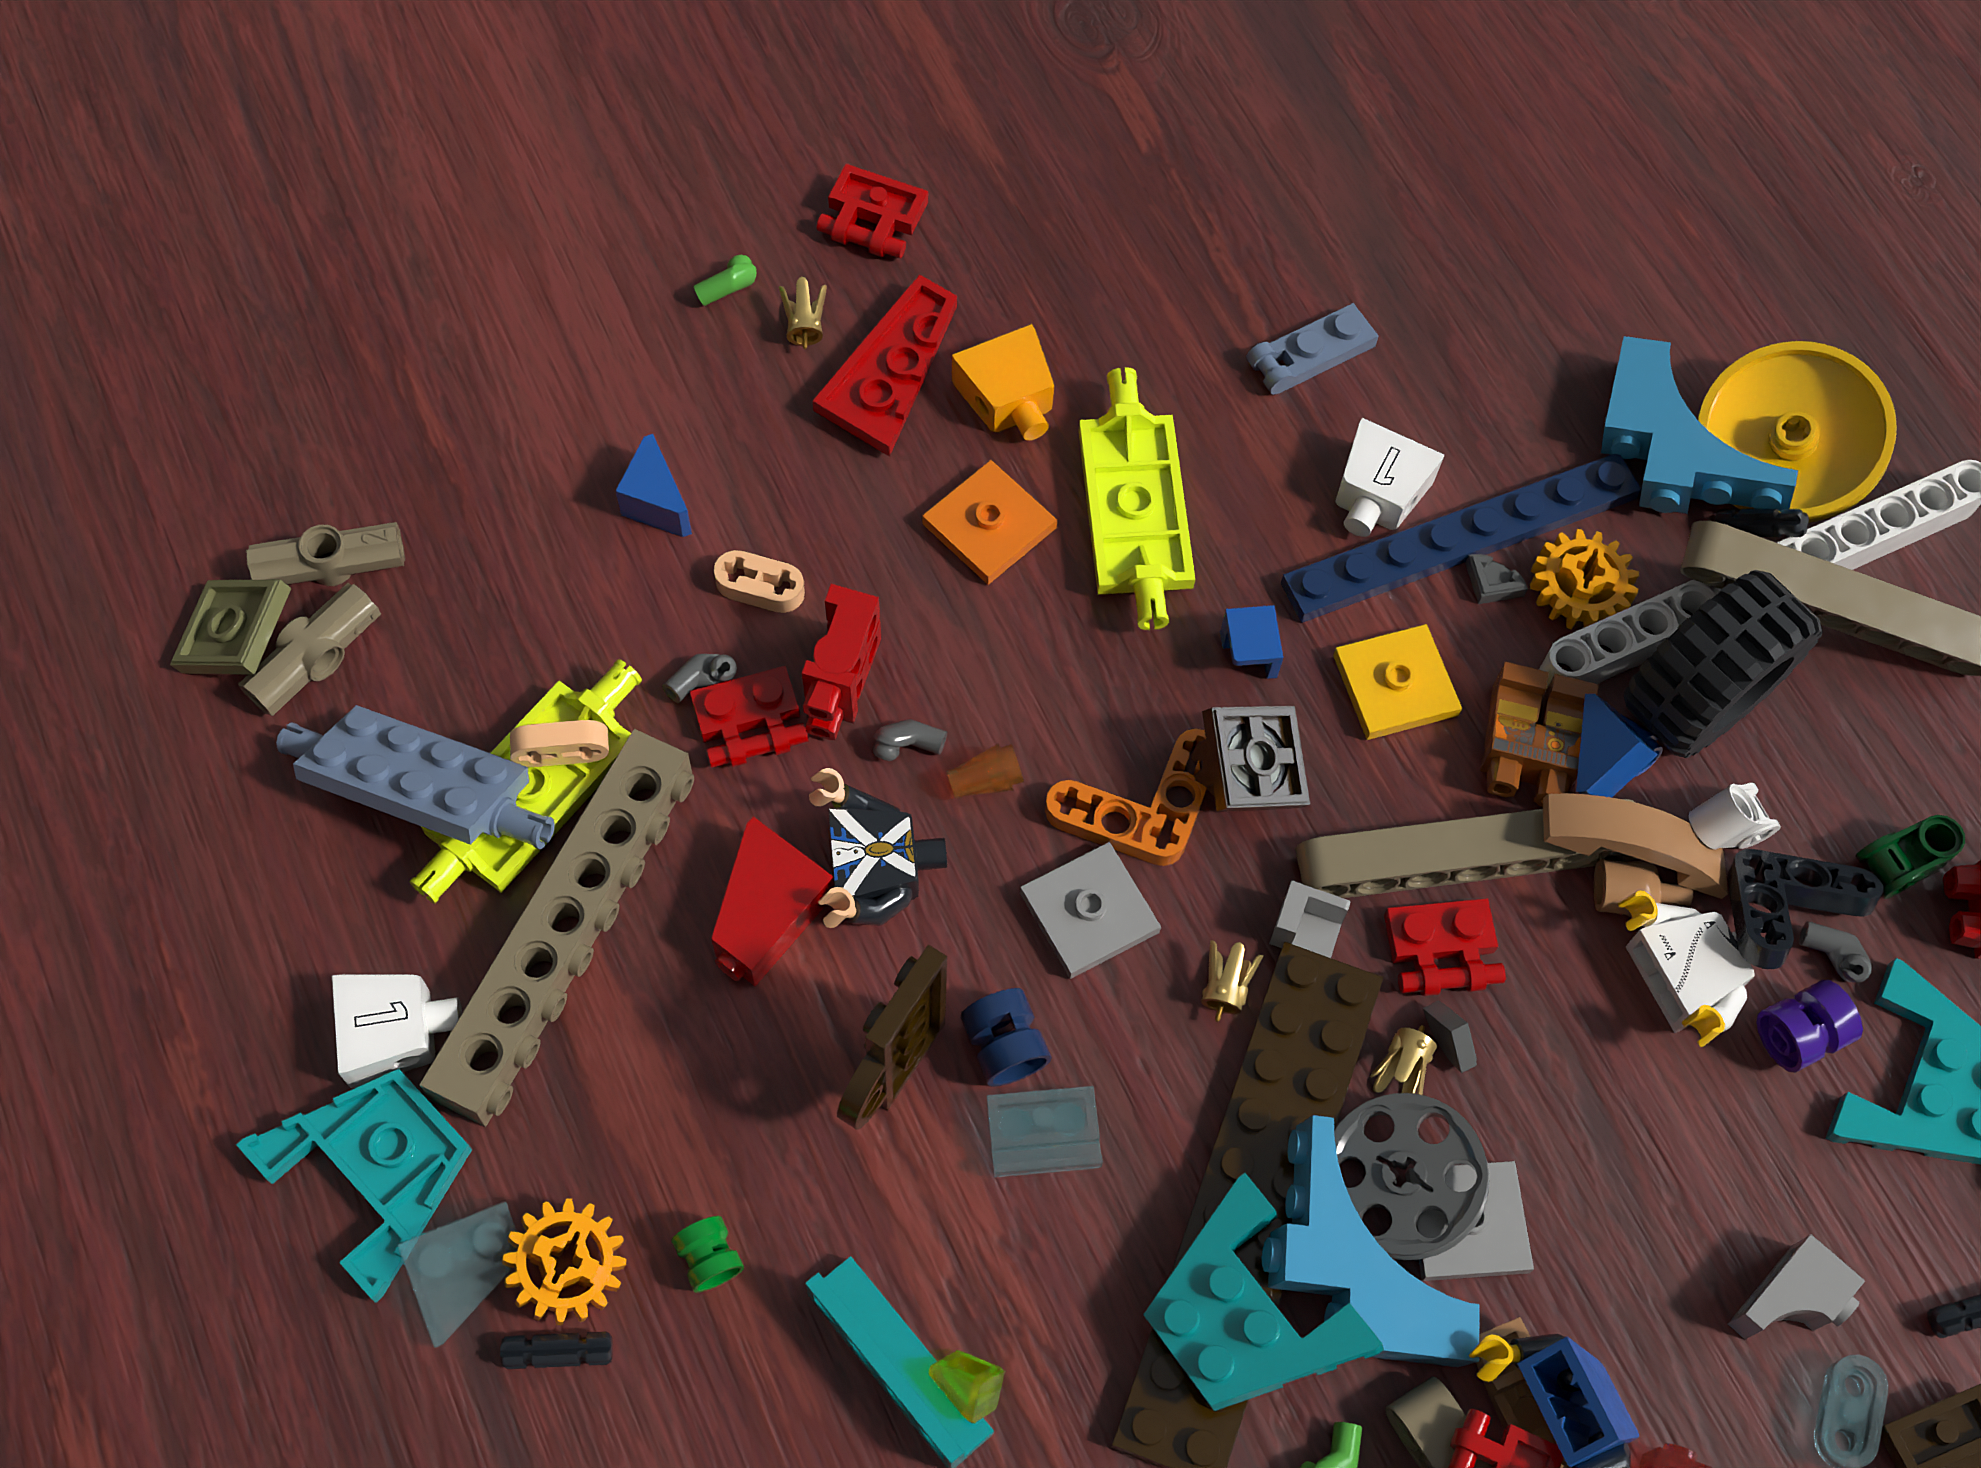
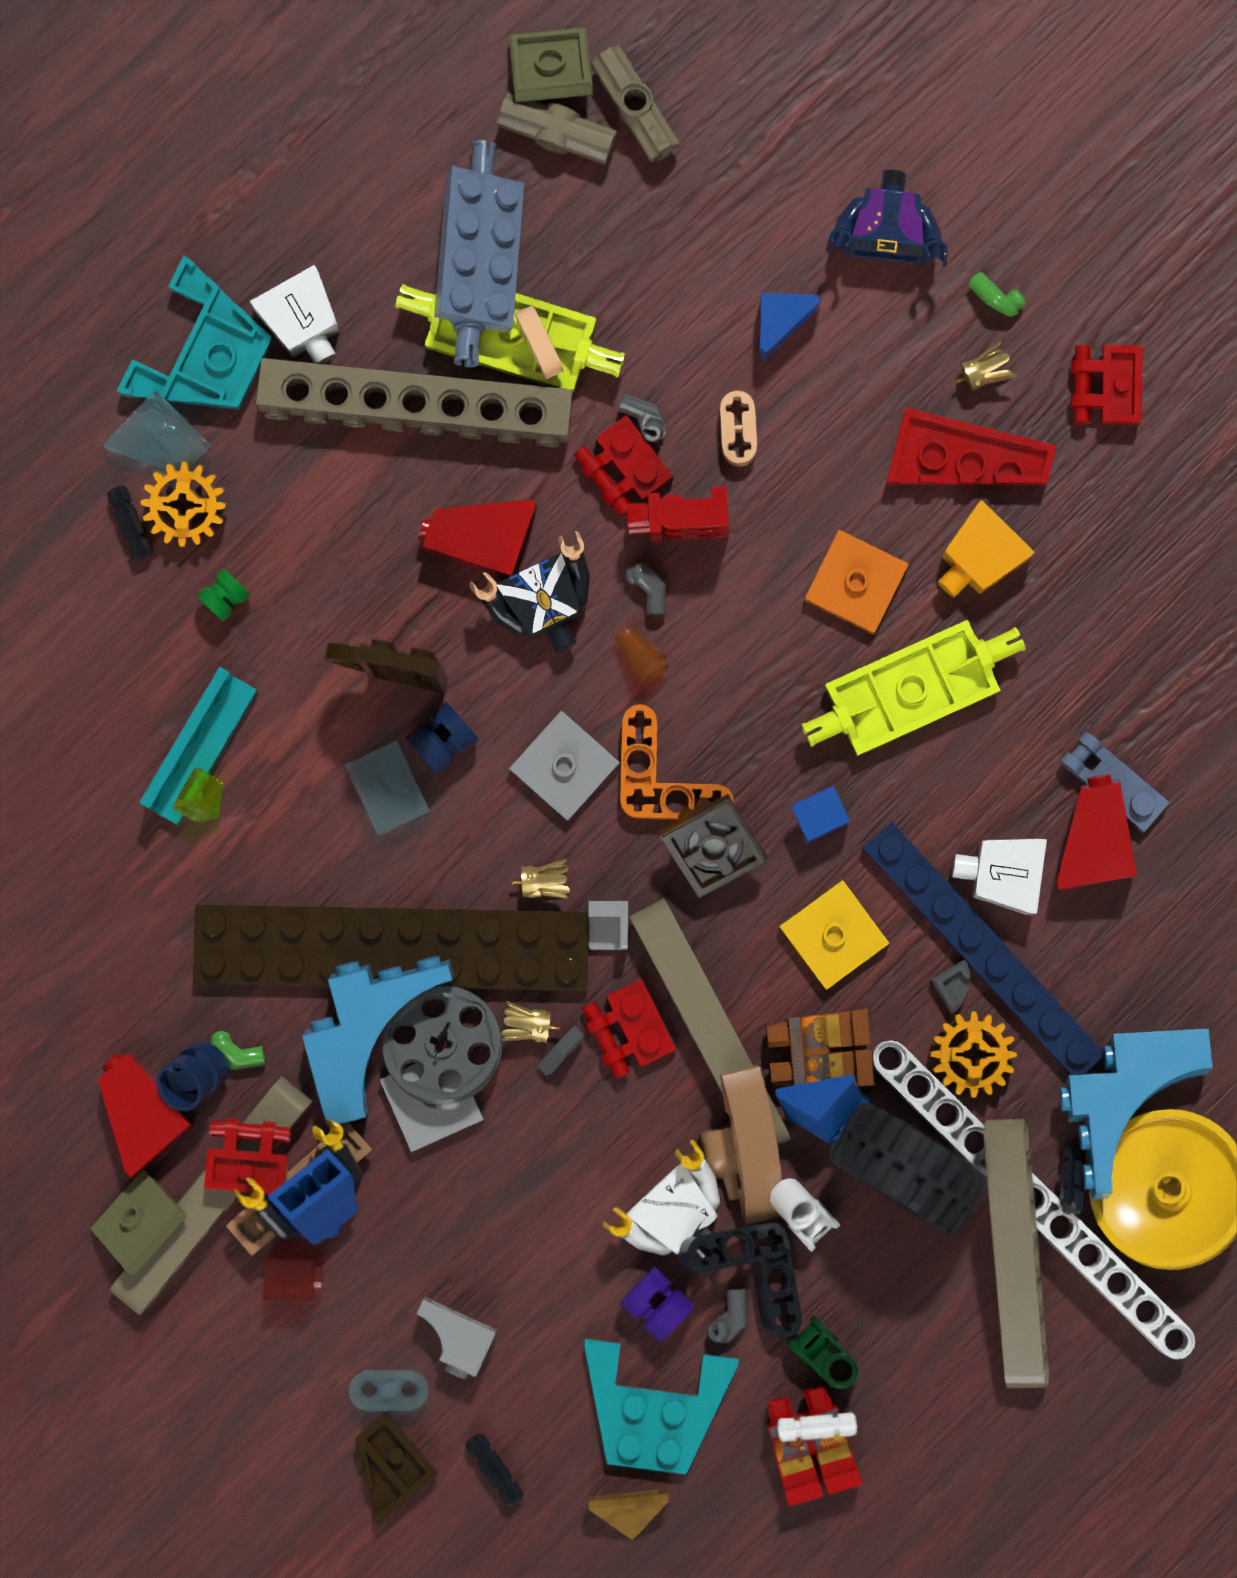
camera: 75 degrees right, 20 degrees up
(603, 345) = (889, 225): none -> dark blue torso
(1228, 1327) = (290, 953): teal wing -> none
(1373, 370) = (1098, 836): none -> red slope

